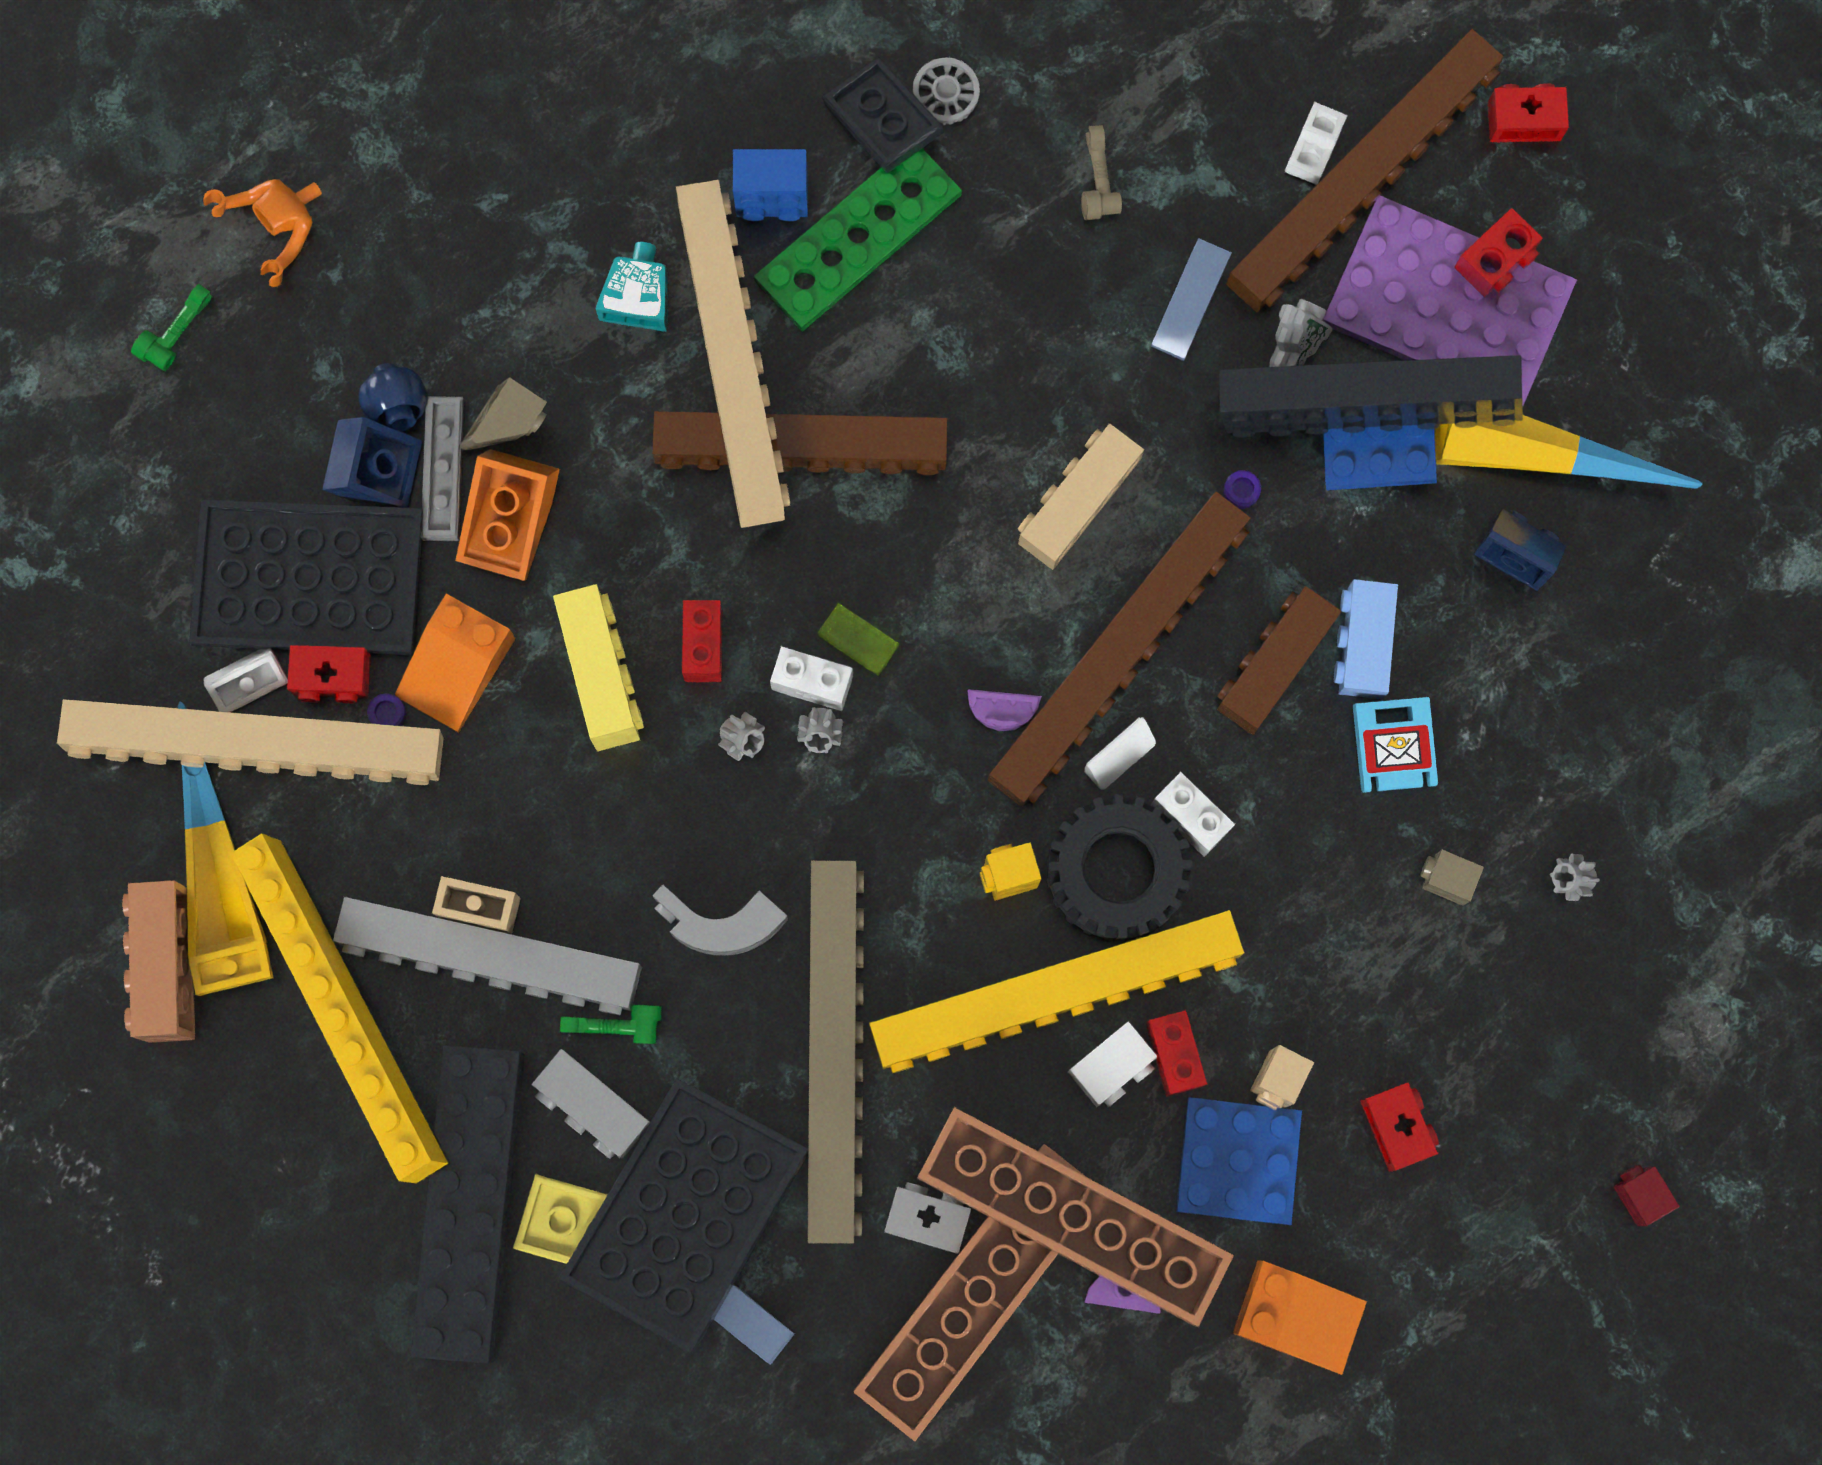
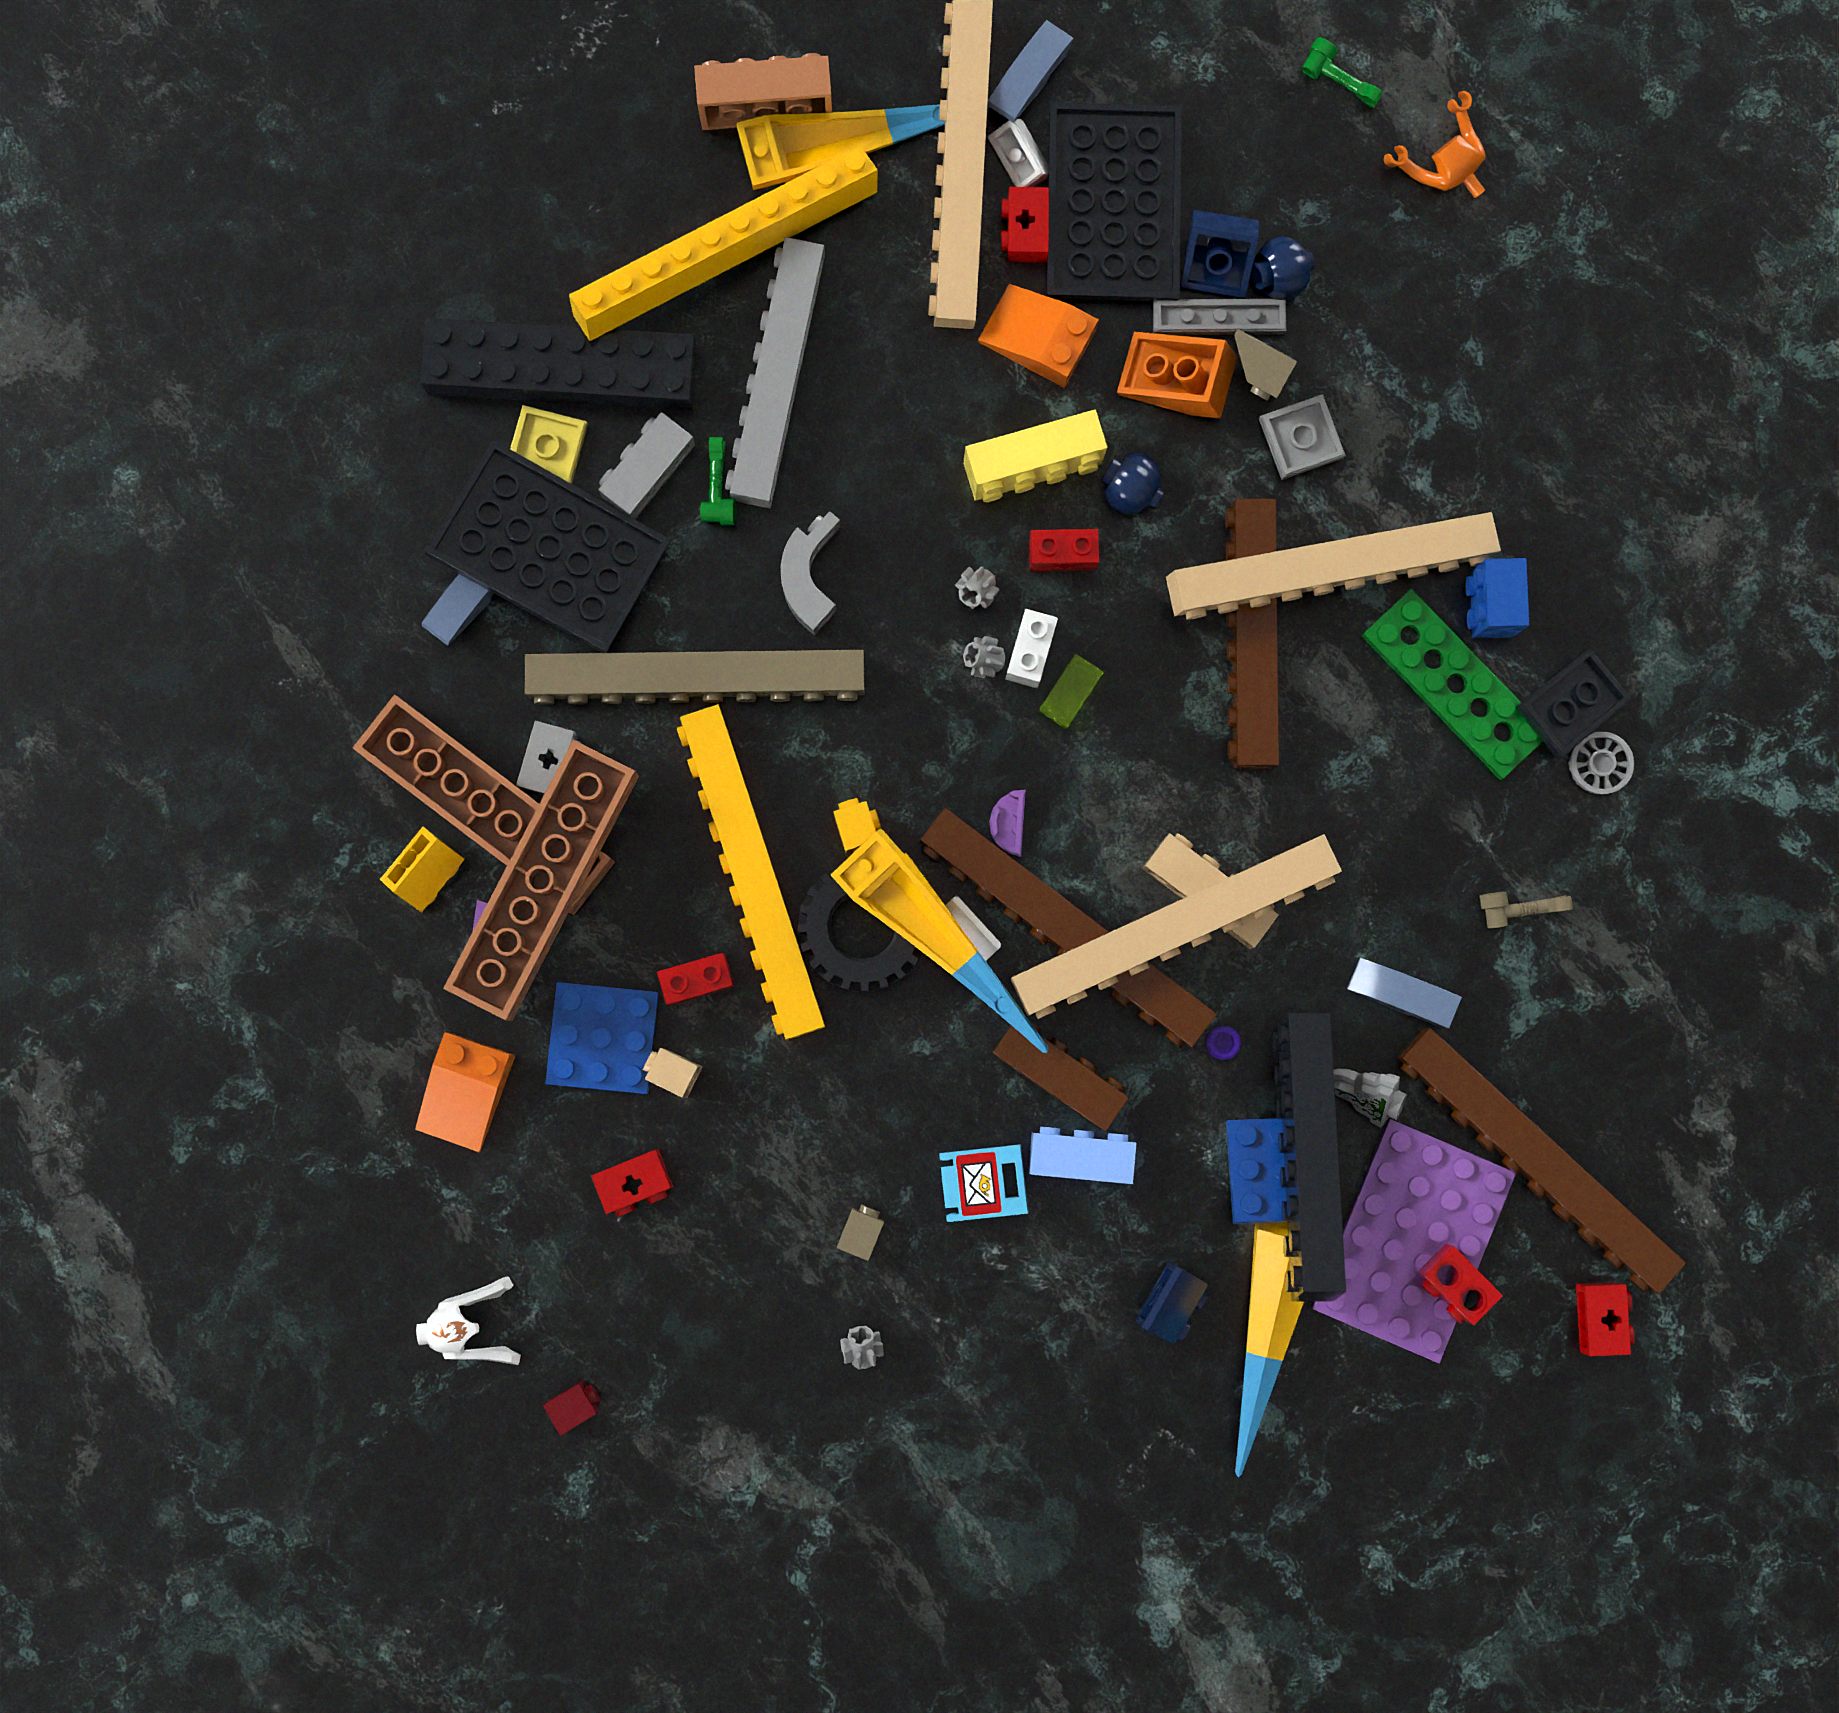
camera: 85 degrees right, 5 degrees up
(151, 663) = (1030, 71): none -> sand blue slope
(386, 710) = (993, 277): dark purple tile -> none
(476, 905) = (819, 359): tan brick -> none
(582, 384) = (1302, 437): none -> light grey plate
(628, 565) = (1132, 483): none -> dark blue plant
(636, 291) = (1392, 481): torso -> none
(1051, 1363) = (422, 869): none -> yellow brick
(1091, 820) = (899, 895): none -> yellow plate
(1112, 1065) = (685, 923): white brick -> none
(1124, 530) = (1176, 925): none -> tan brick
(1198, 817) = (913, 994): white brick -> none
(1315, 143) = (1565, 1114): white slope -> none
(1570, 1328) = (449, 1330): none -> white piece

